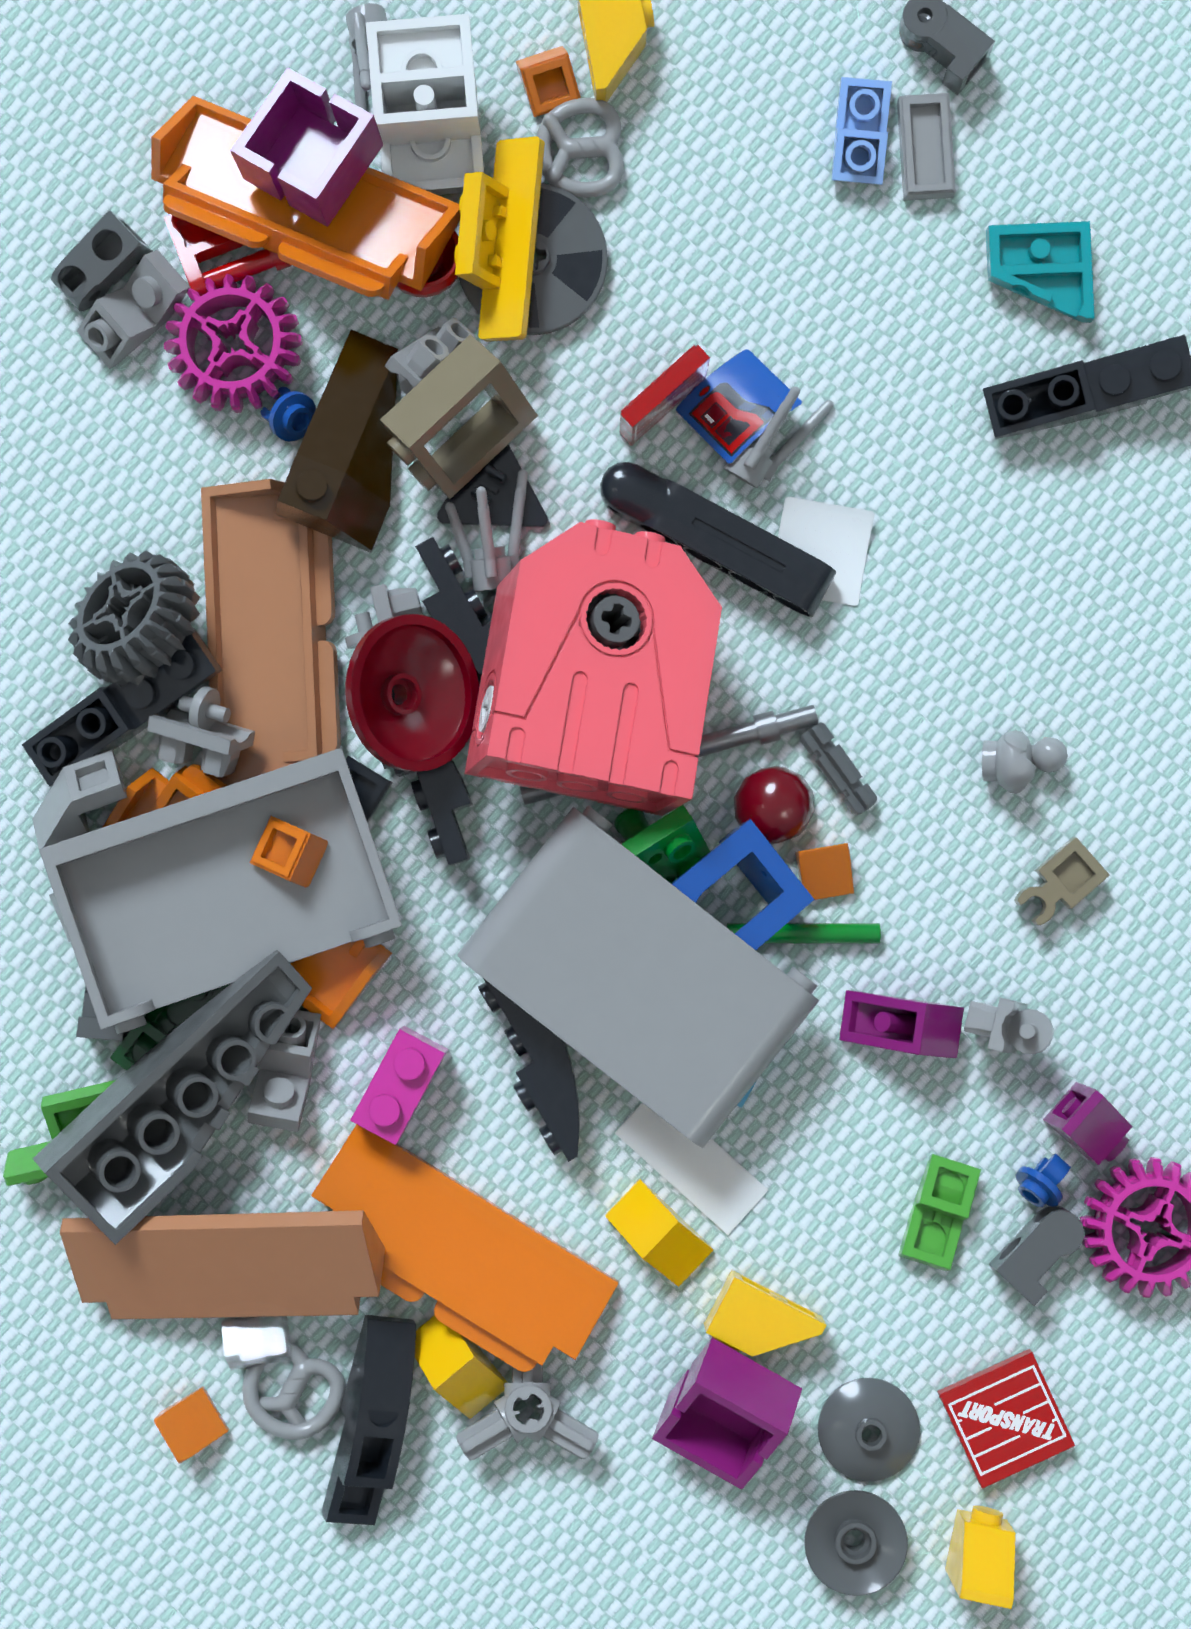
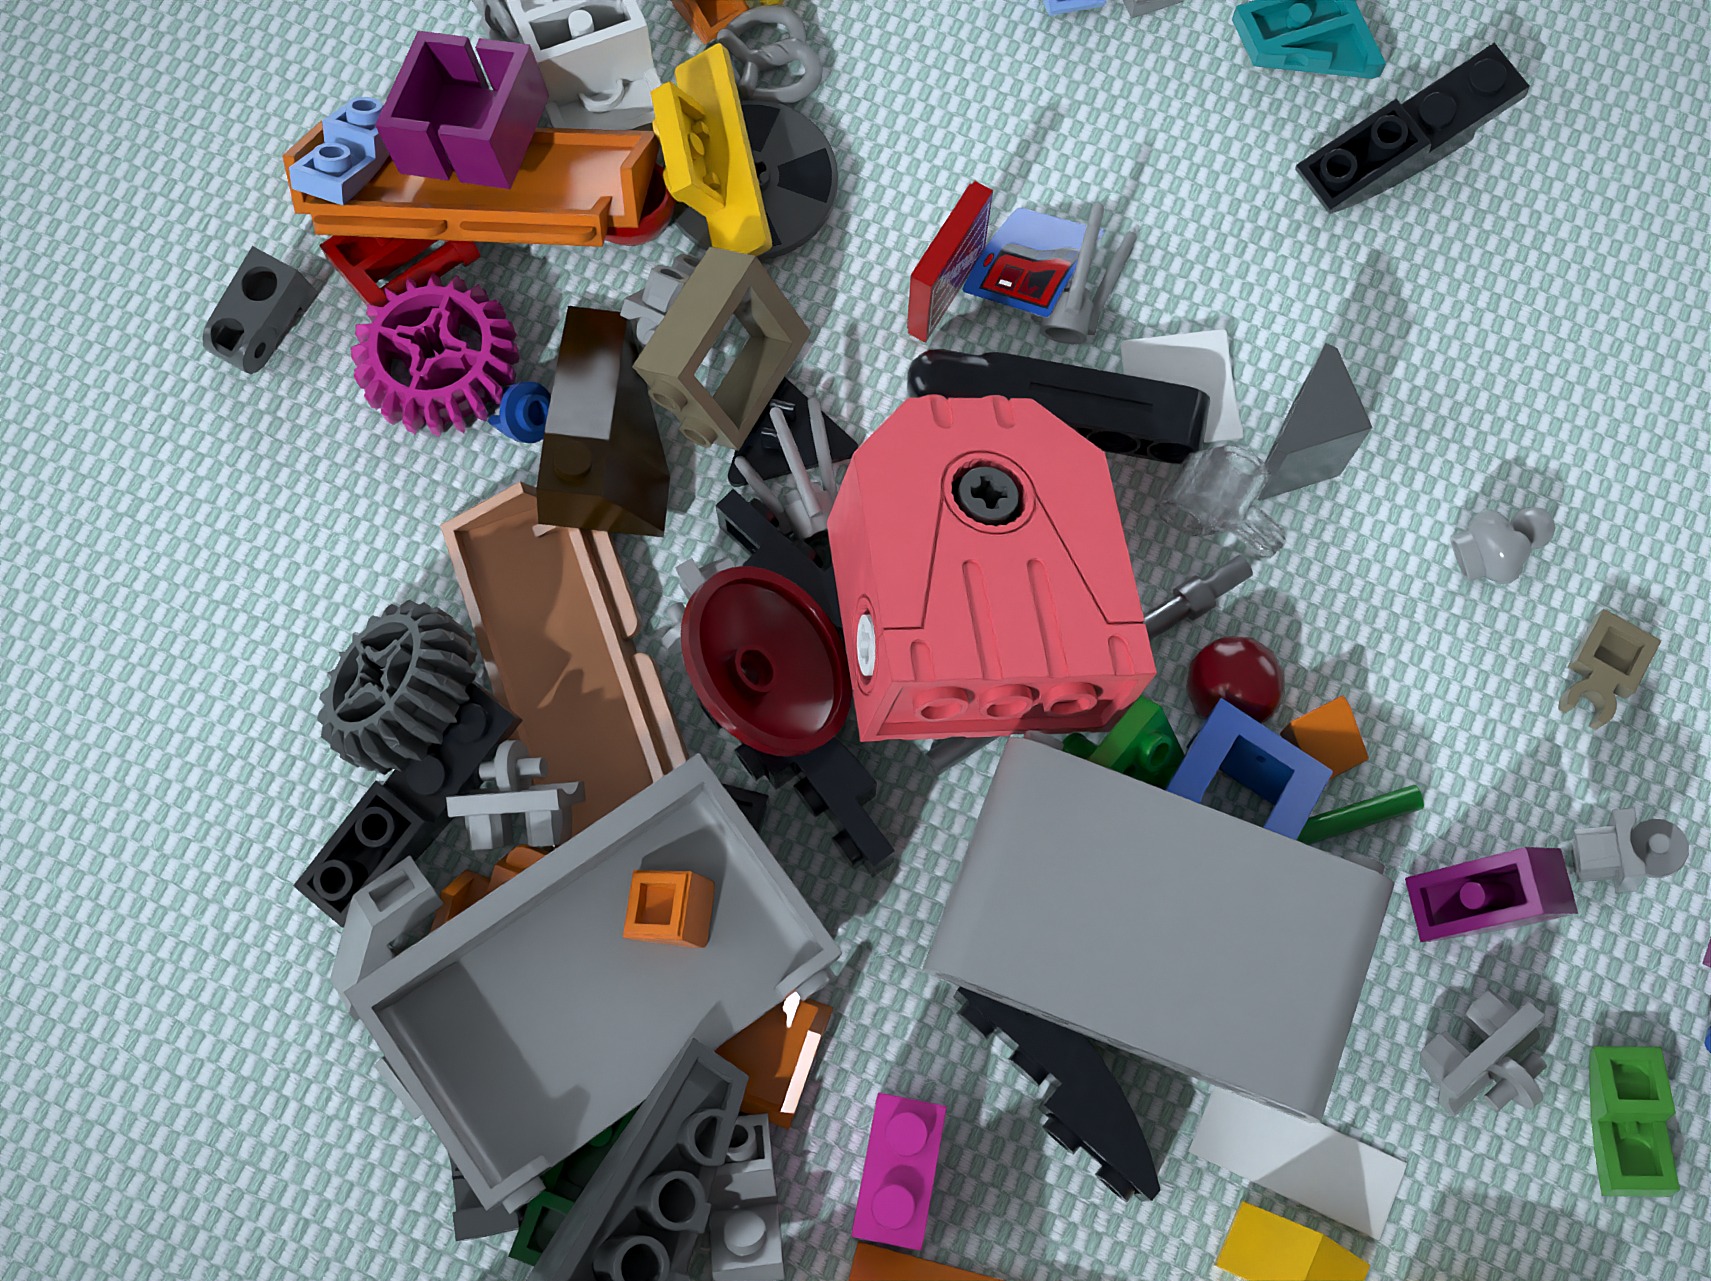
camera: 20 degrees left, 15 degrees down
(132, 314) = (304, 367): light grey slope -> none
(205, 146) = (347, 157): none -> light blue slope
(812, 660) = (1218, 494): none -> clear beam
(838, 768) = (1295, 619): dark grey axle -> none
(871, 1127) = (1506, 1037): none -> light grey hips
(904, 630) = (1319, 430): none -> dark grey slope

